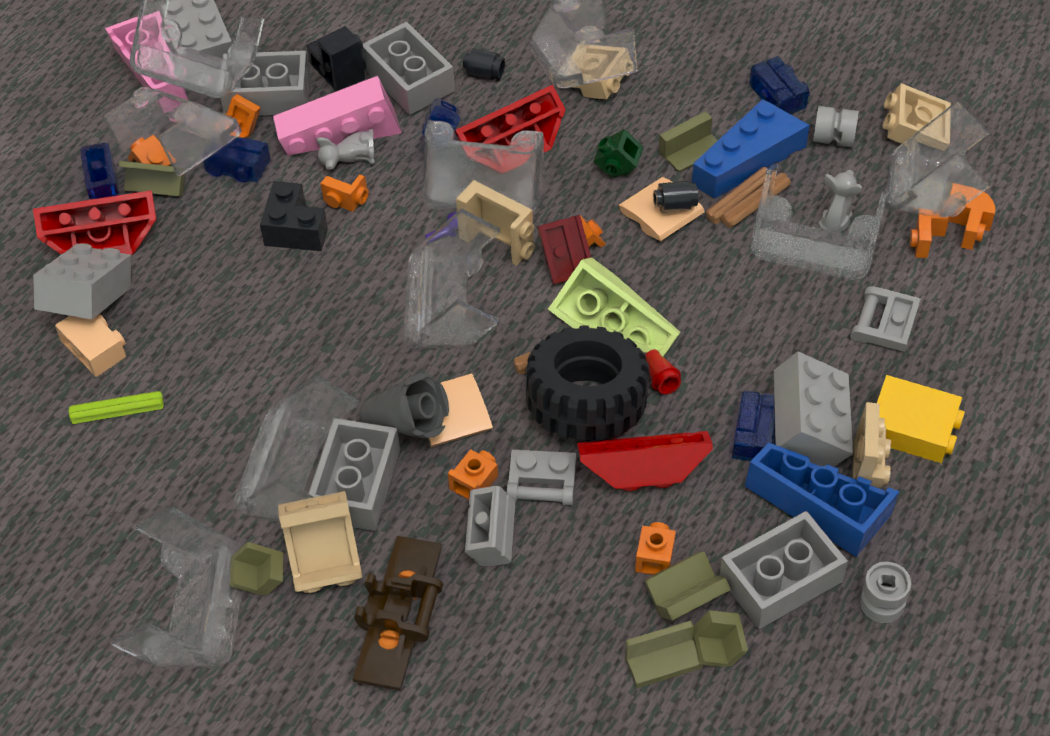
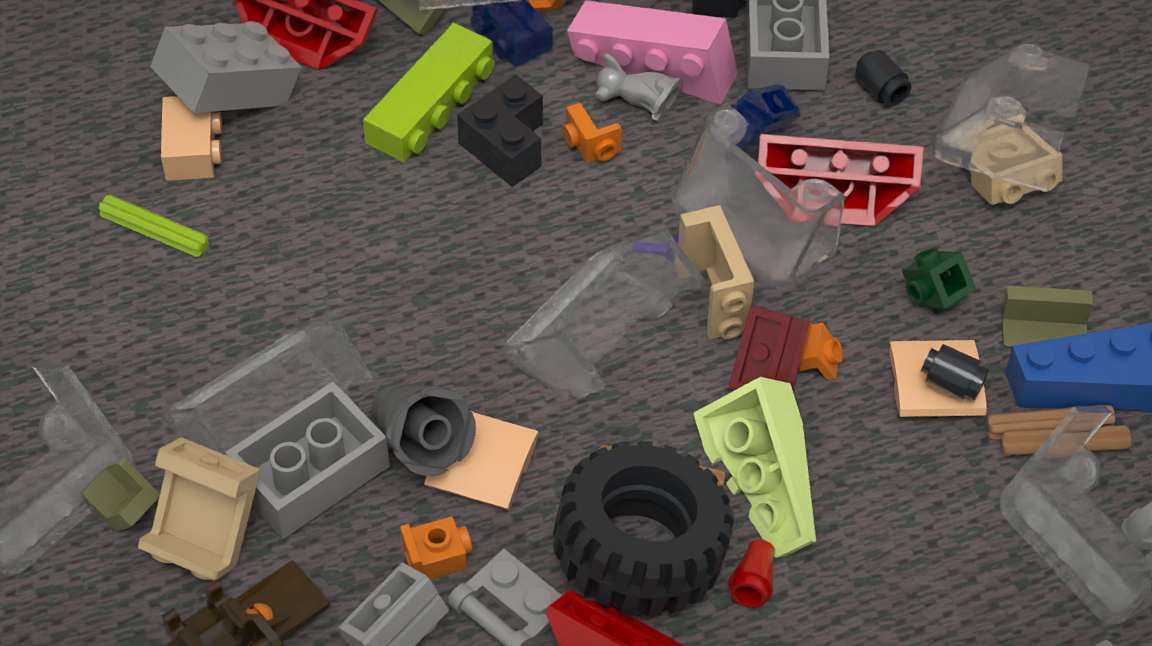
camera: 35 degrees right, 0 degrees up
(222, 225) = (429, 93): none -> lime brick

